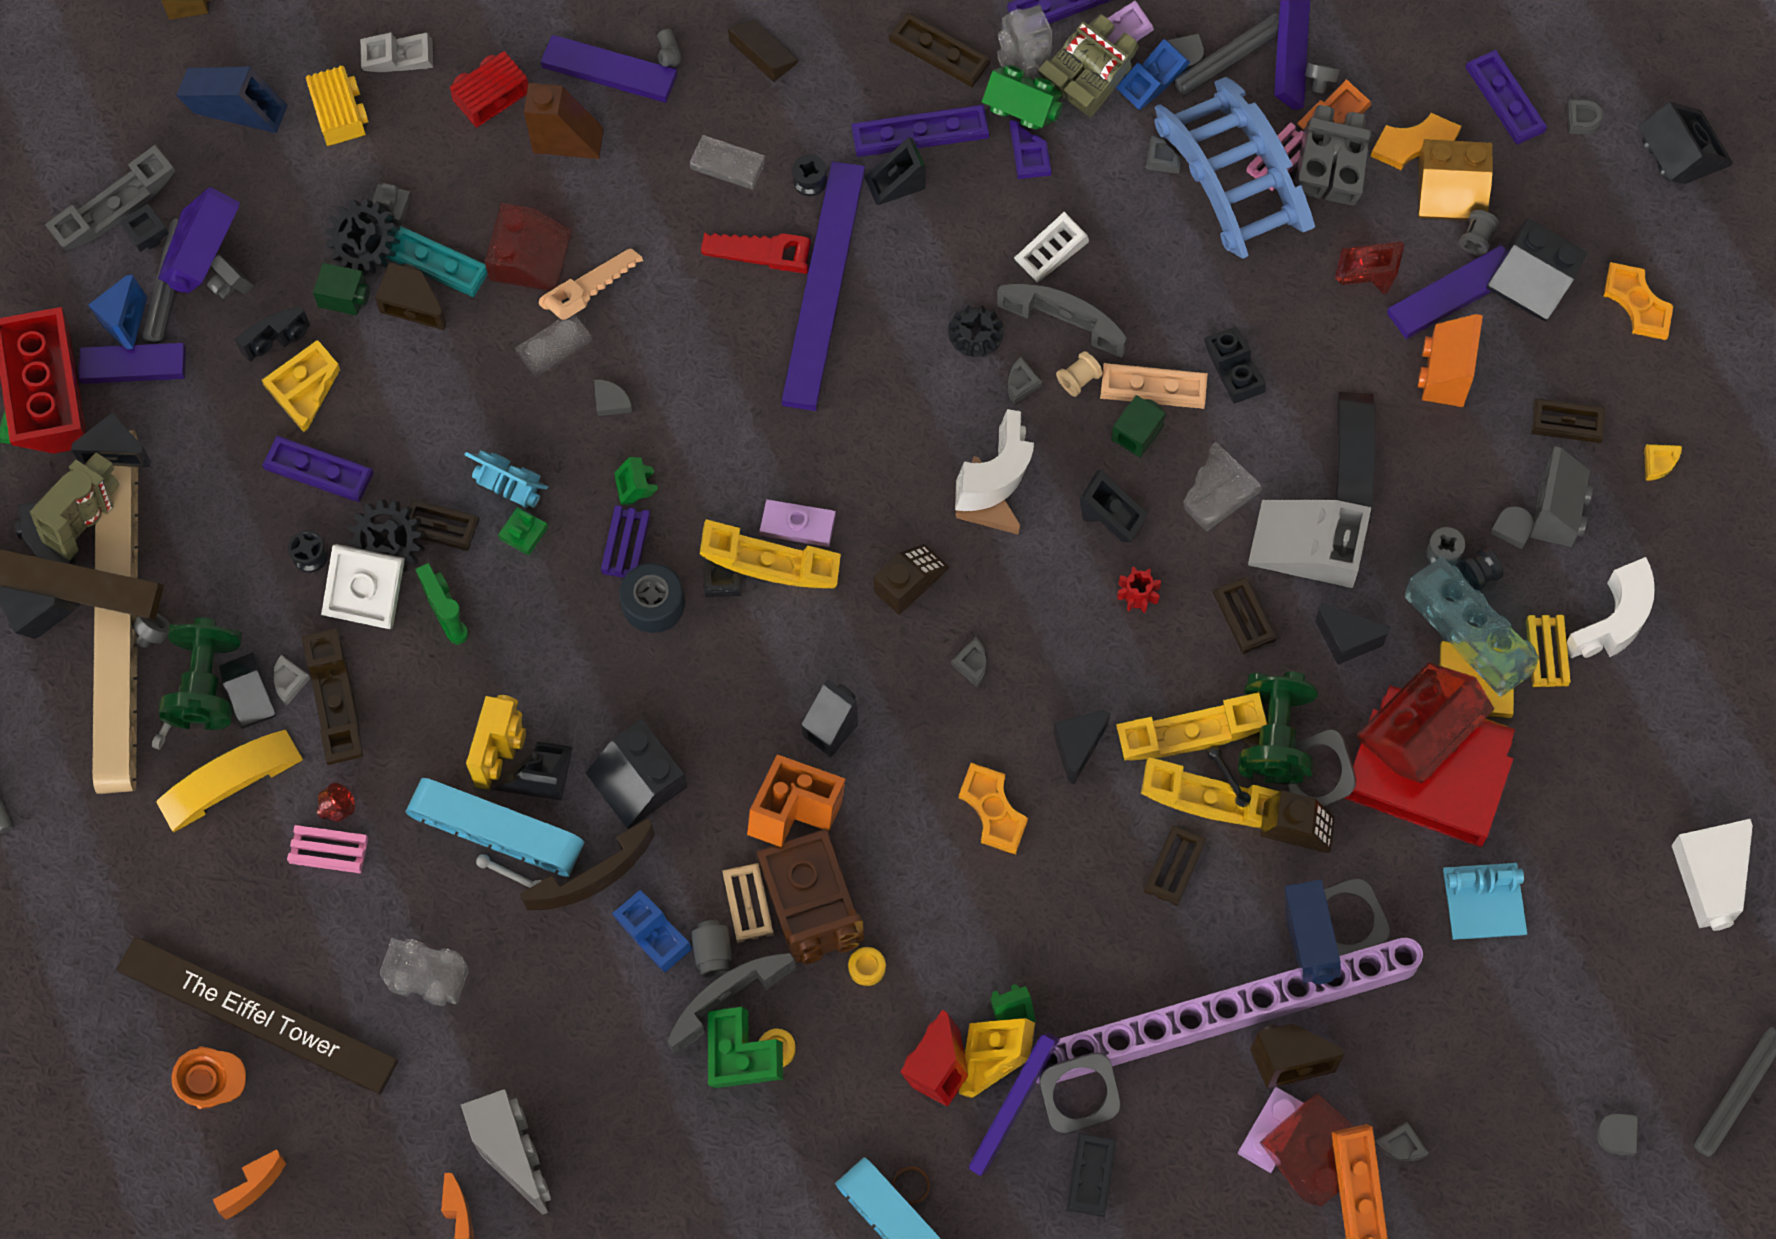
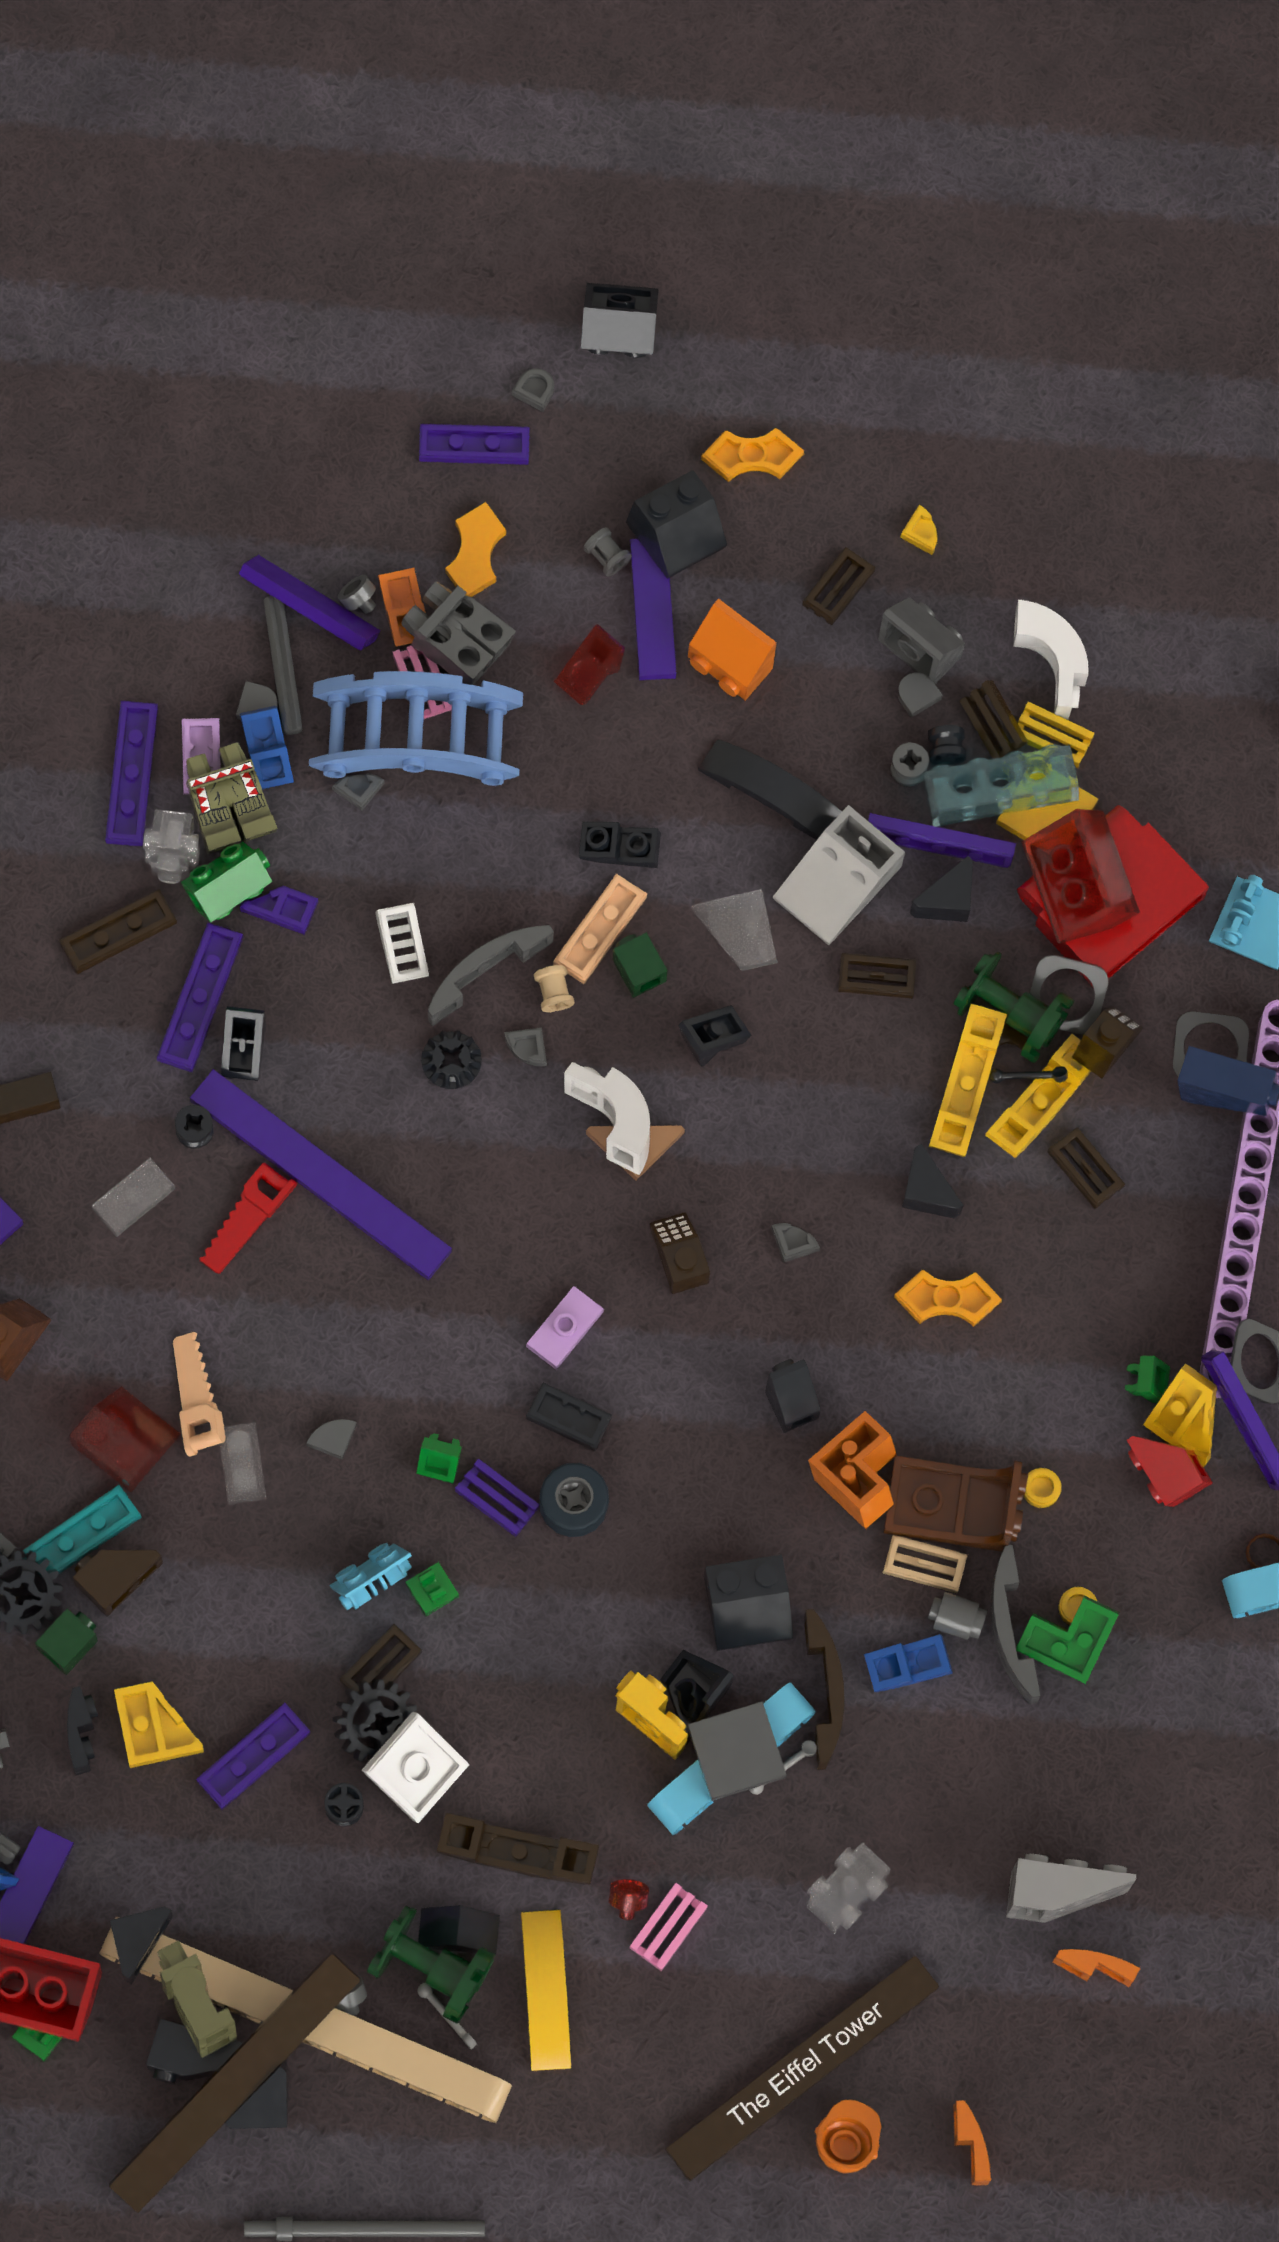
camera: 70 degrees left, 5 degrees up
(288, 679) = (469, 1886): light grey tile -> none
(443, 605) = (474, 1699): green plate -> none
(495, 821) = (736, 1751): none -> dark grey tile
(769, 560) = (596, 1369): yellow slope -> none
(1132, 595) = (795, 1051): red gear -> none
(1392, 604) = (945, 841): none -> dark purple tile
(1453, 179) = (541, 541): slope -> none
(1522, 594) = (981, 726): none -> dark brown tile

